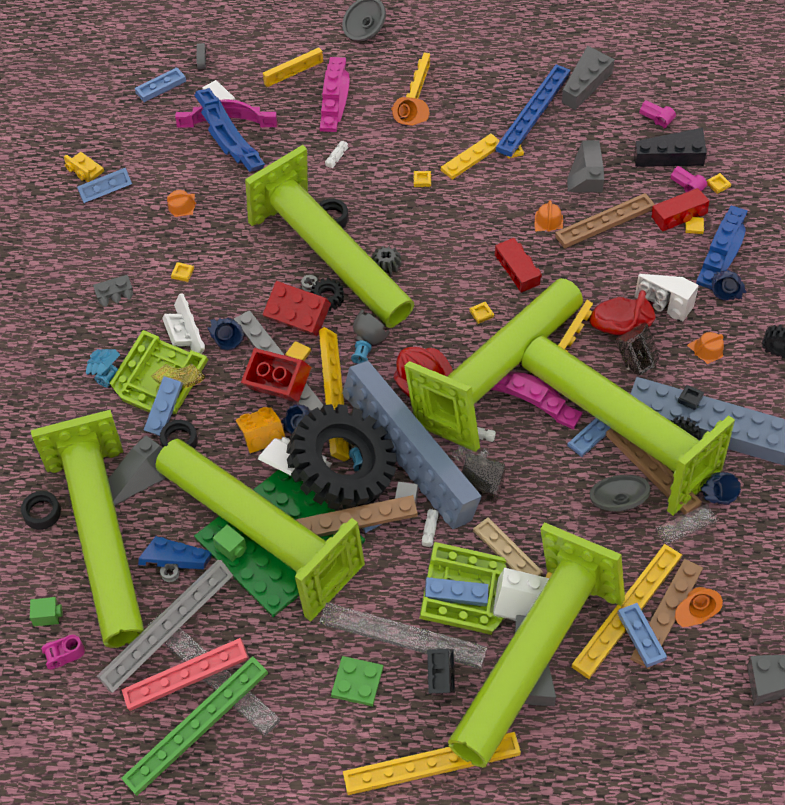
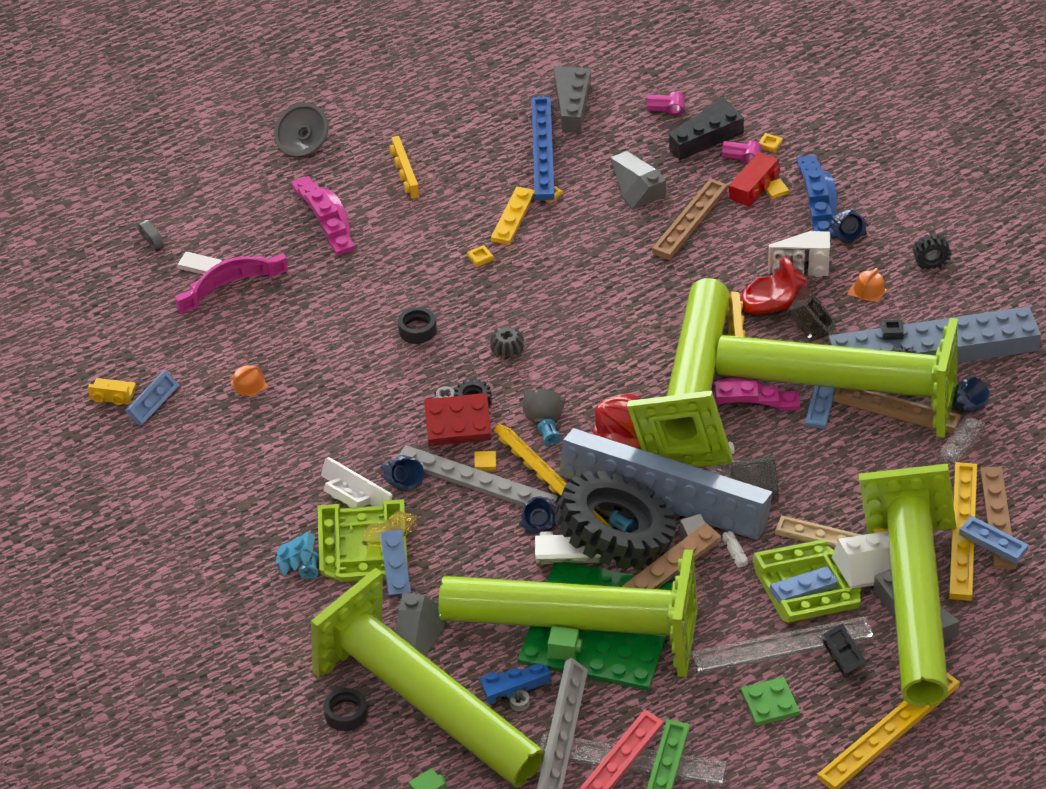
camera: 30 degrees left, 10 degrees down
(113, 289) = (245, 488): dark grey plate -> none
(160, 84) = (128, 280): medium blue plate -> none
(177, 425) = (424, 573): black tyre -> none
(182, 272) = (304, 442): yellow tile -> none
(225, 132) = (245, 297): blue piece -> none
(260, 428) = (508, 538): light orange bracket -> none
(276, 374) = (488, 483): red brick -> none
(284, 190) = (364, 319): lime piece -> none
(293, 67) = (260, 206): yellow plate -> none
(336, 154) = (374, 269): white axle -> none
(412, 108) = (420, 195): orange piece -> none
(481, 312) = (635, 348): yellow tile -> none
(518, 264) = (638, 291): red brick -> none
(548, 218) = (633, 239): orange piece -> none
(620, 493) = (886, 438): dark grey dish -> none
(698, 607) = (1023, 496): orange piece -> none

